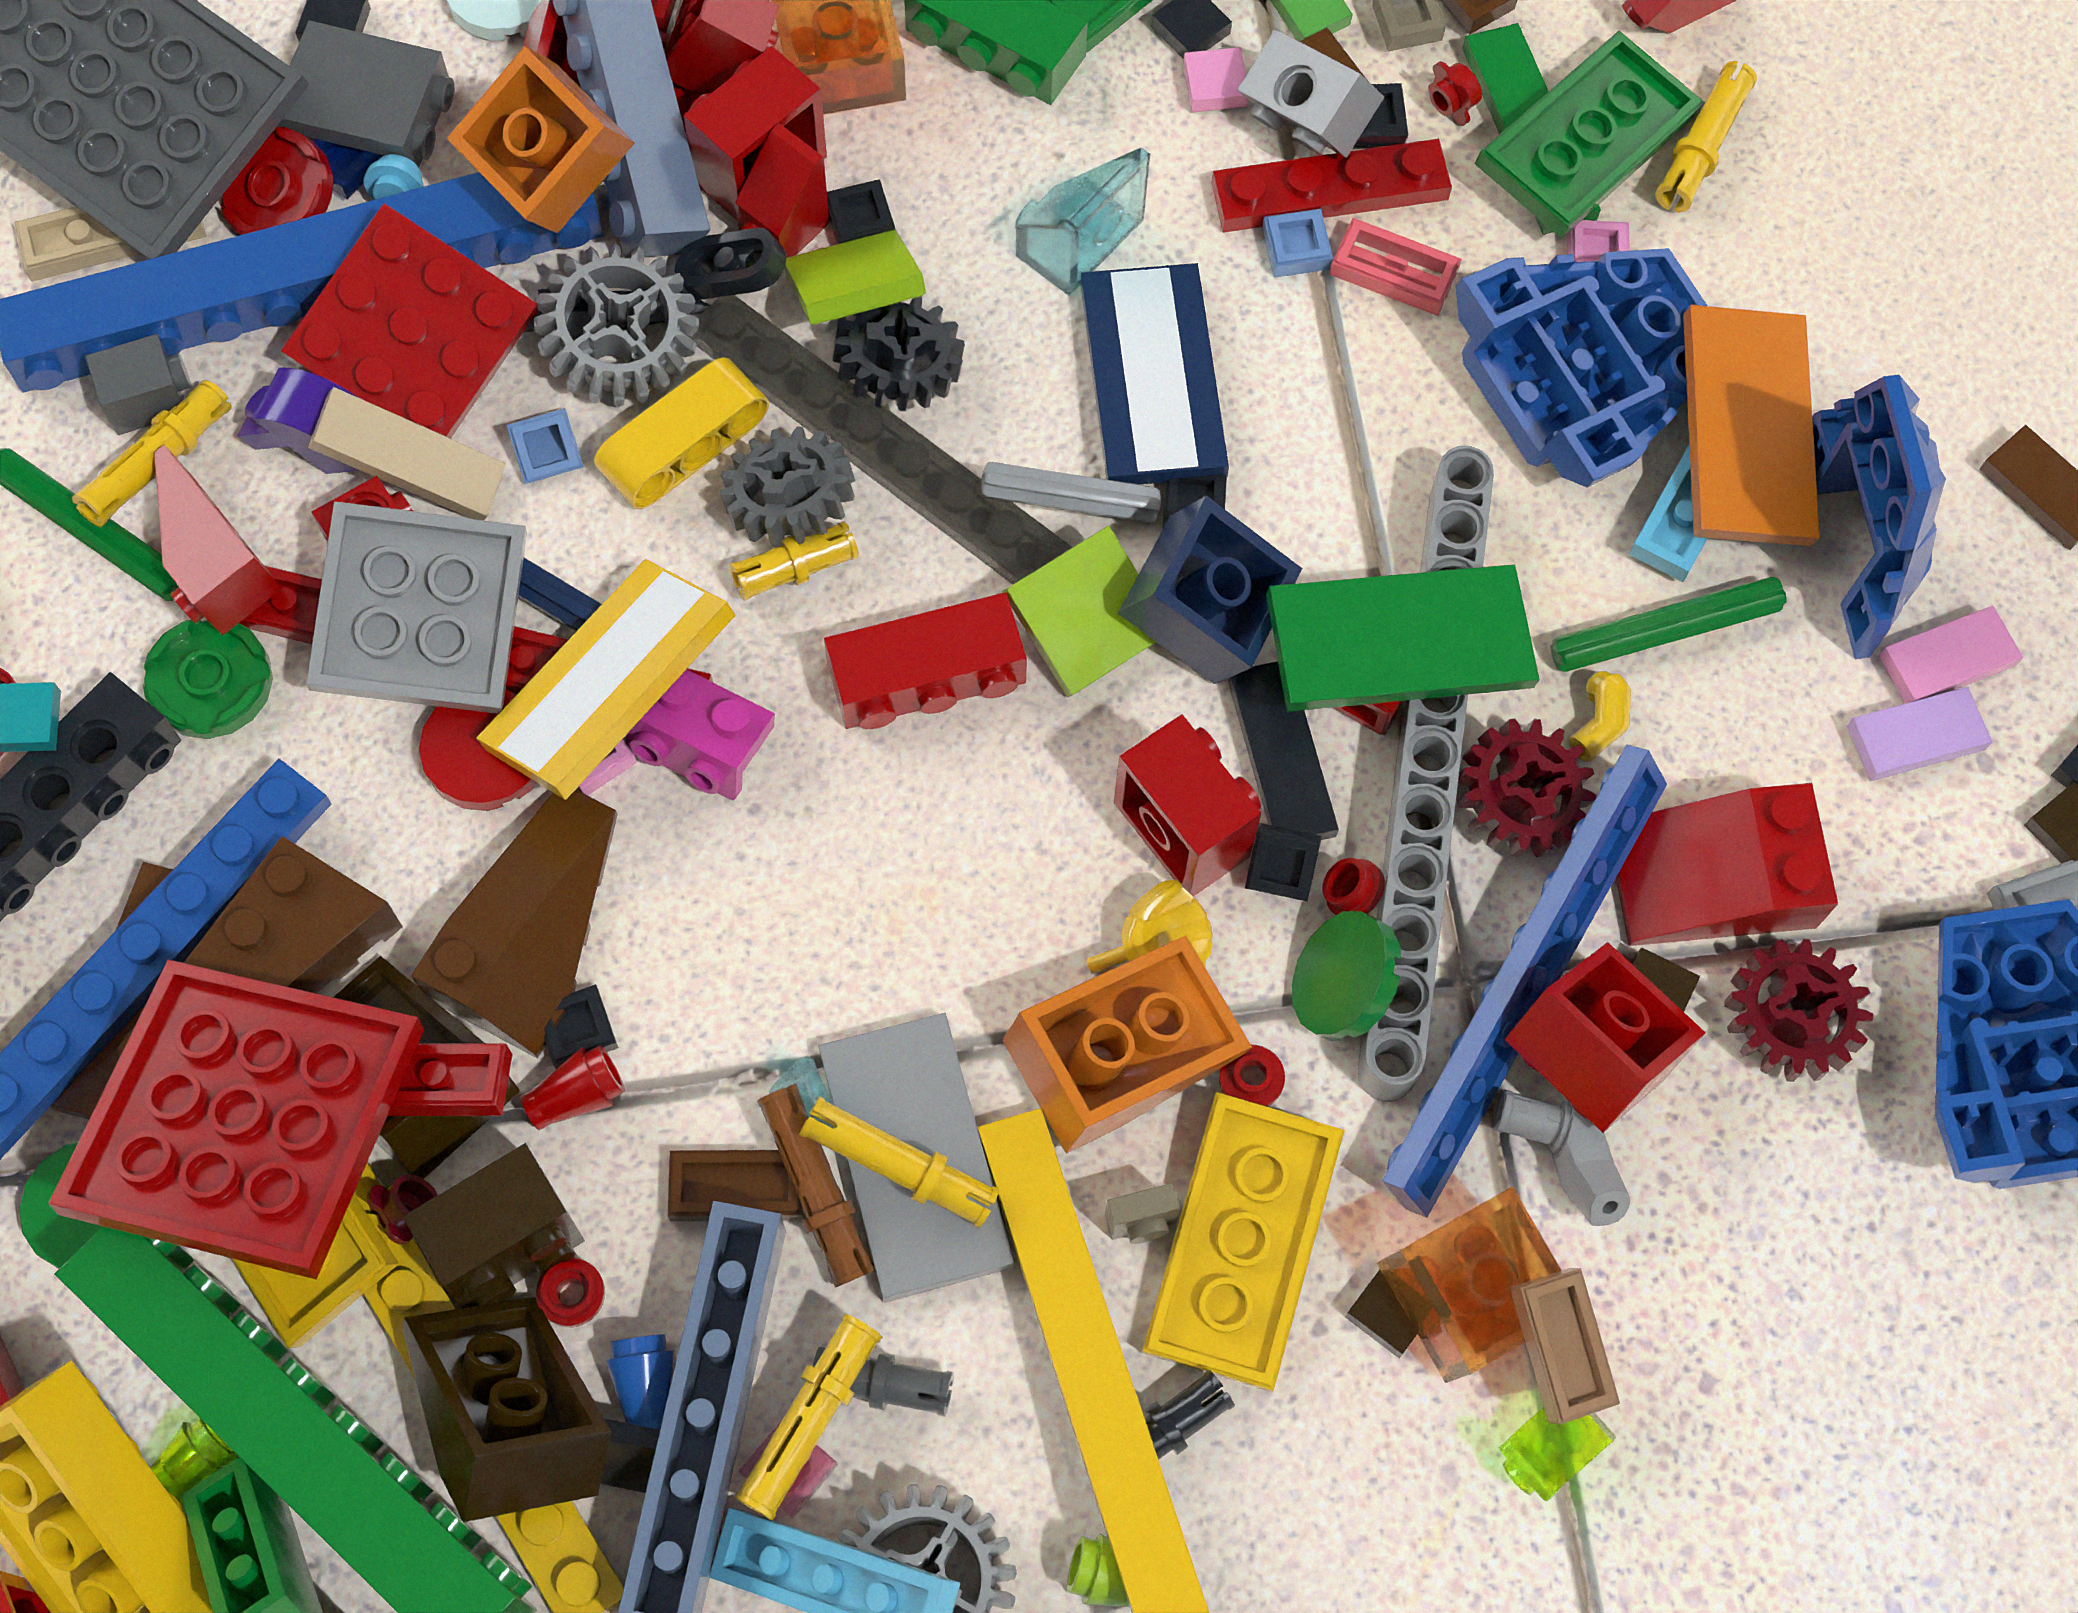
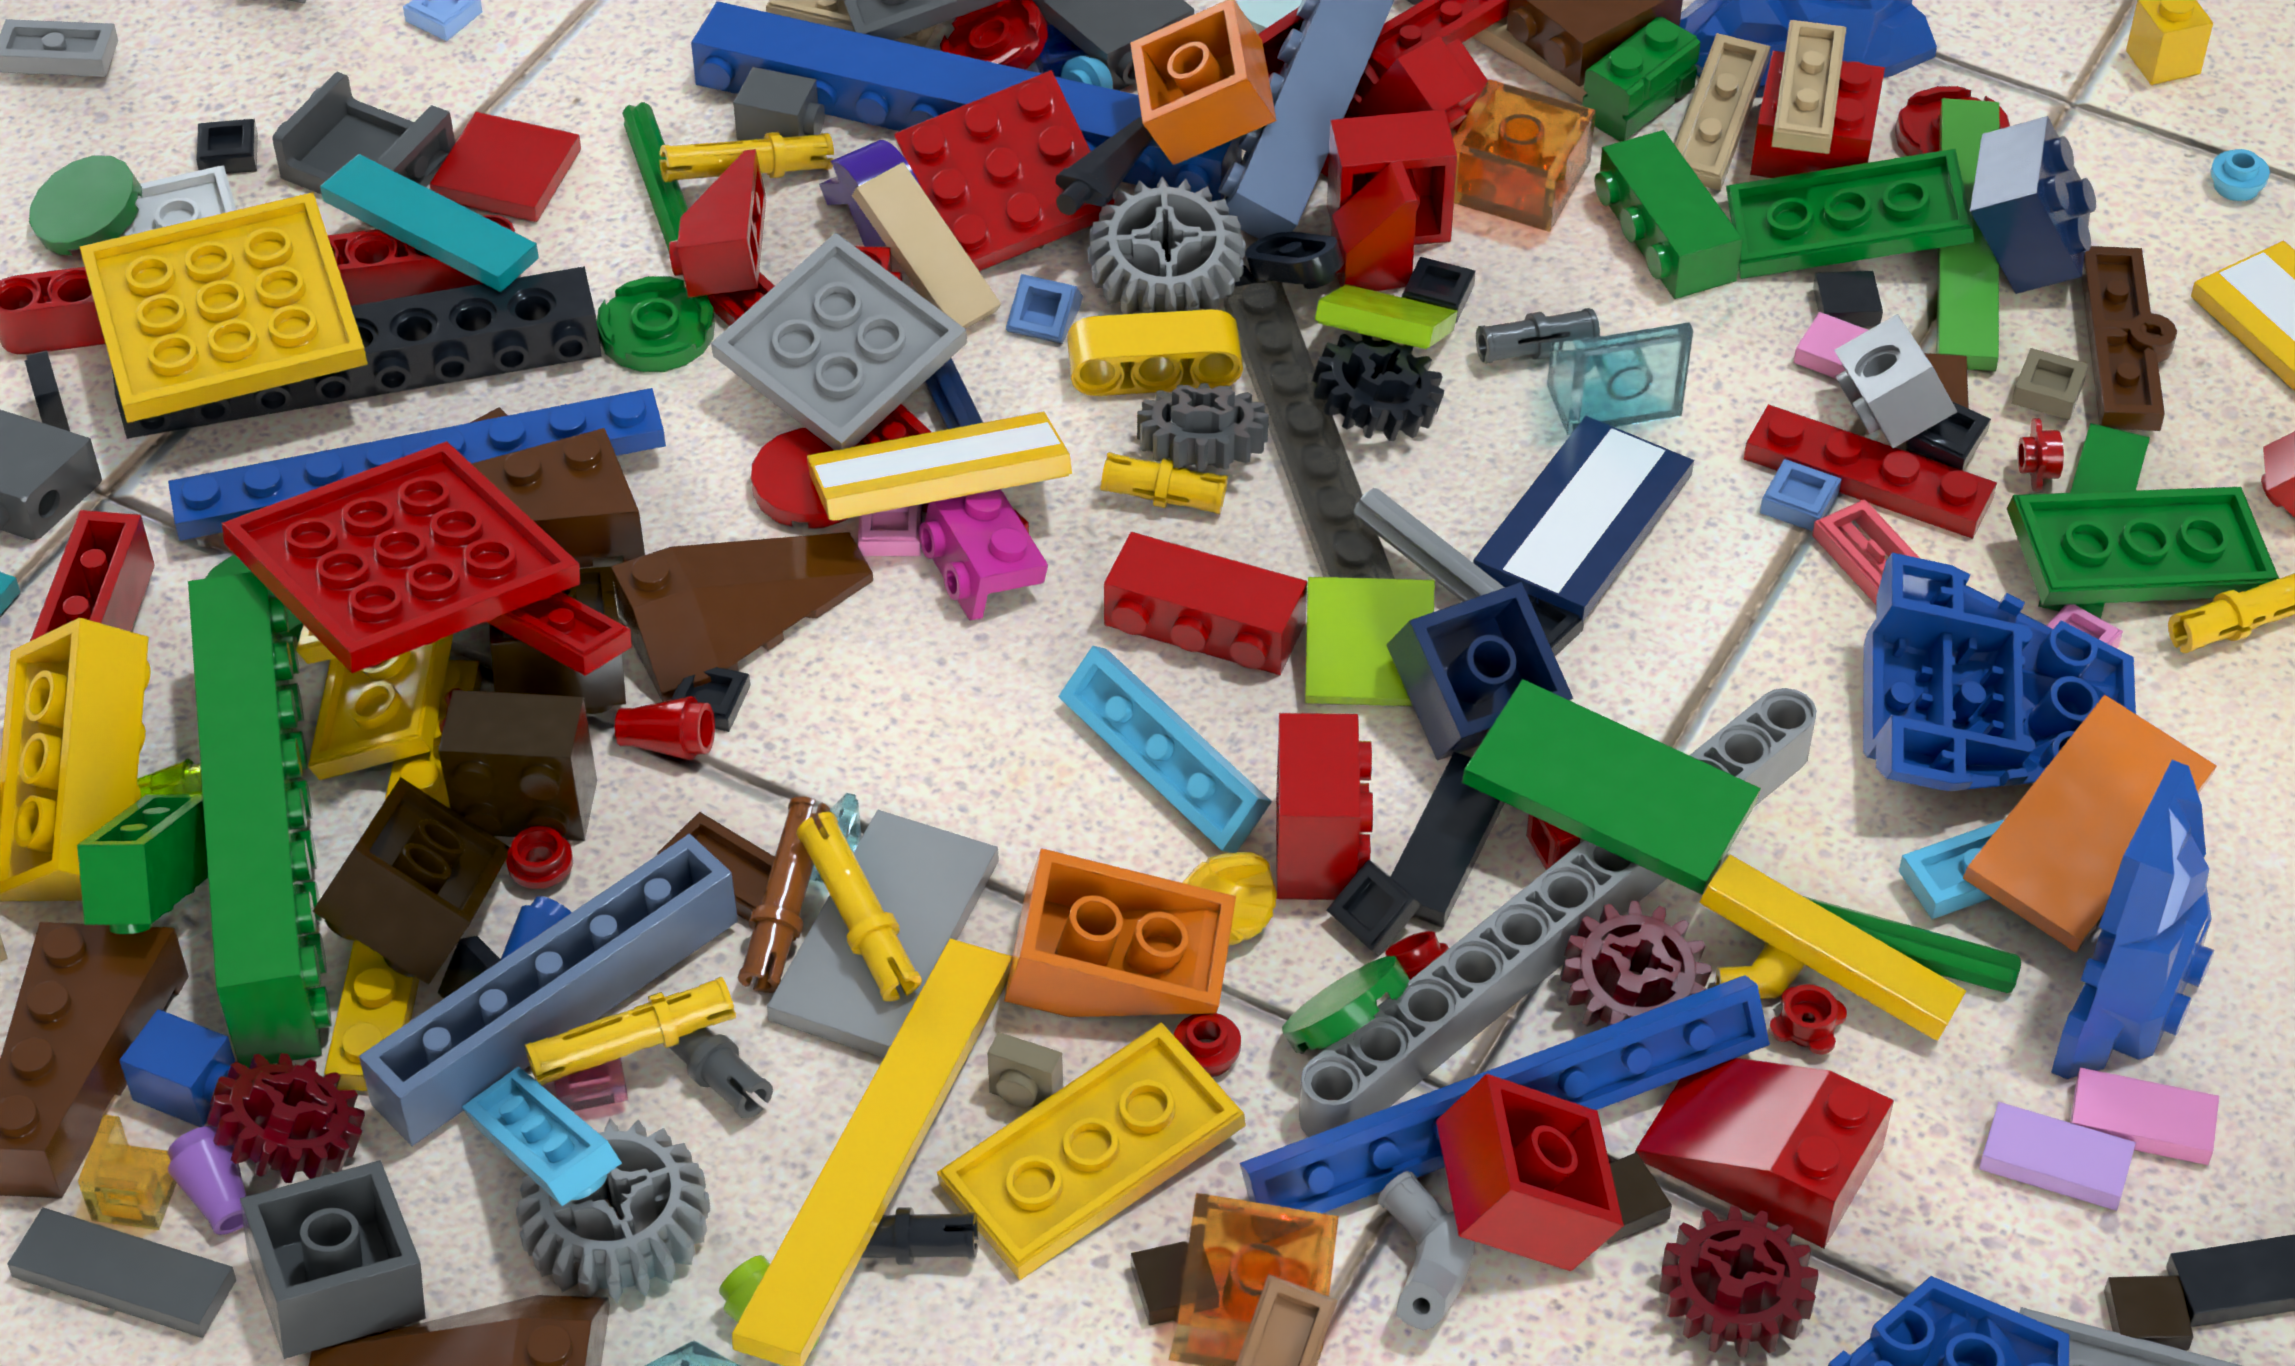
camera: 40 degrees right, 20 degrees down
(508, 278) = (1102, 170): none -> black bar
(981, 215) = (1534, 334): none -> dark grey pin
(1004, 826) = (1165, 749): none -> medium azure plate
(1652, 665) = (1833, 947): none -> yellow tile
(1679, 724) = (1811, 1004): none -> red plate

